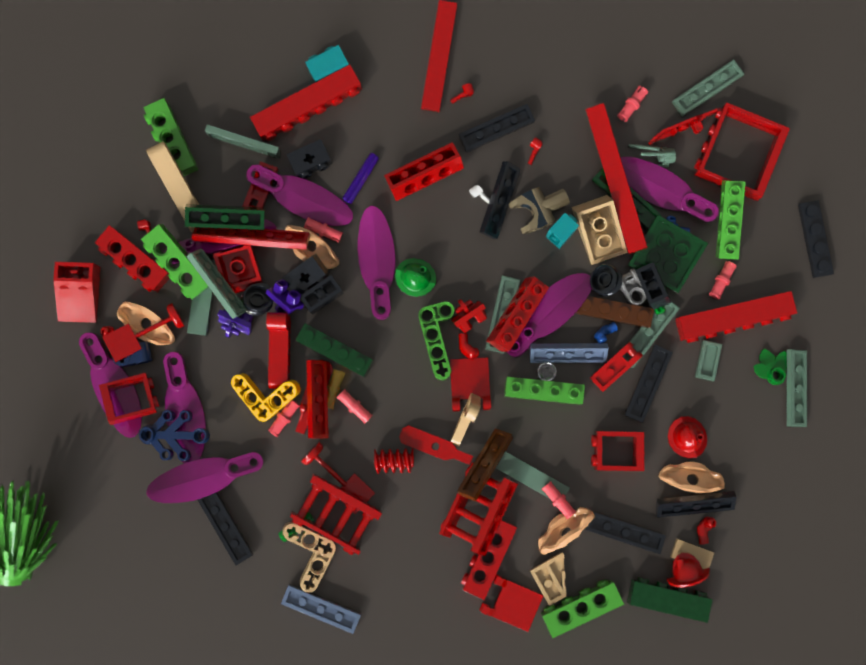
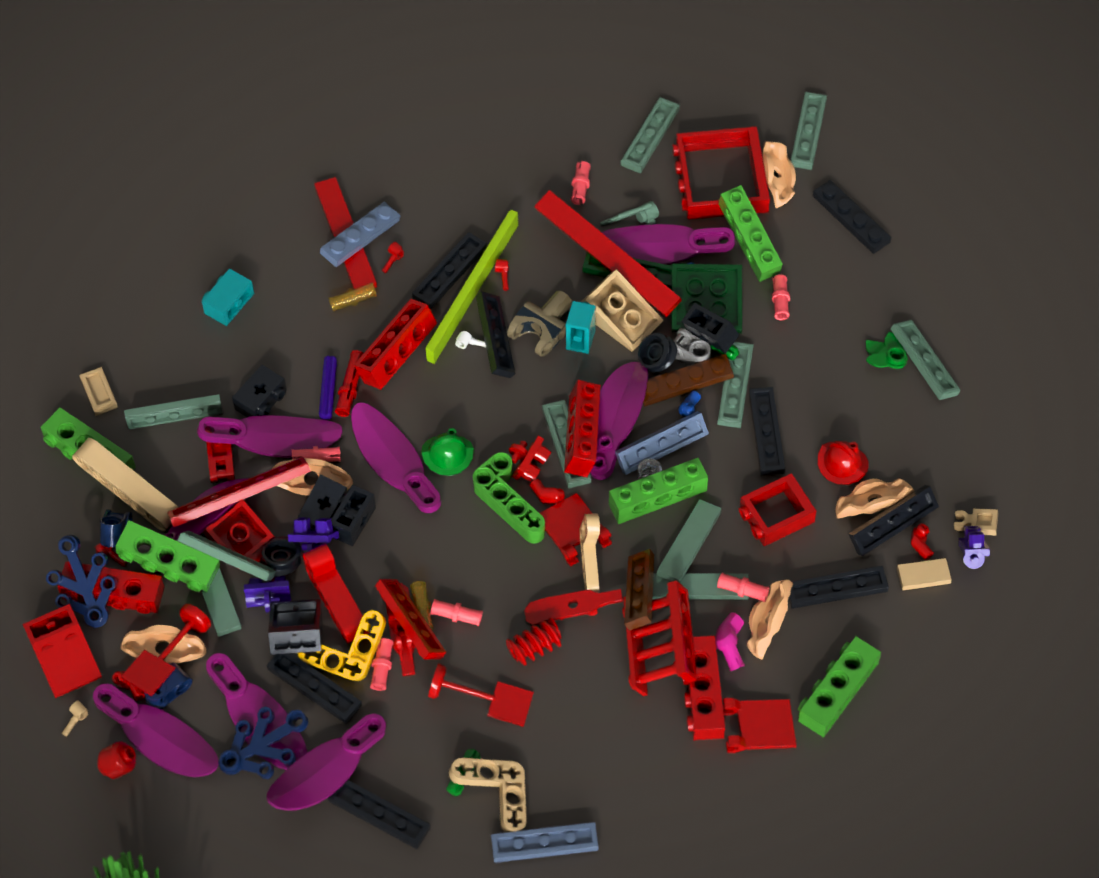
camera: 30 degrees left, 25 degrees down
(69, 340) = (79, 713): none -> tan hand
(72, 394) = (116, 760): none -> red head
(111, 273) = (84, 584): none -> dark blue plant
(125, 382) = (172, 748): red window -> none
(156, 213) = (112, 526): none -> dark blue piece
(202, 94) = (98, 391): none -> tan tile
(224, 217) = (197, 484): dark green brick -> none
(228, 376) = (293, 637): none -> black window
(231, 408) = (315, 686): none -> black plate
(306, 103) = (224, 342): red brick -> none
(334, 350) = (400, 563): dark green brick -> none
(352, 504) = (513, 707): red fence -> none
(373, 189) = (347, 391): none -> red pin
(416, 113) = (352, 297): none -> clear yellow pin
(448, 63) = (360, 234): none -> sand blue plate
(505, 150) = (471, 287): none -> lime tile
(525, 532) = (727, 639): none -> dark pink arm
(543, 441) = (689, 541): none -> sand green tile
(551, 578) = (786, 675): tan wing -> none
(615, 367) = (720, 430): red plate -> none
(669, 600) = (928, 628): dark green brick -> none
(687, 571) = (927, 586): red helmet -> none
(694, 123) = (654, 169): red piece -> none
(708, 360) = (816, 380): sand green tile -> none
(737, 315) = (816, 323): red brick -> none
(739, 557) = (973, 547): none -> dark purple hips
(756, 539) = (984, 518): none -> tan plate
(788, 161) = (776, 159): none -> light nougat piece
(828, 147) = (808, 130): none -> sand green tile

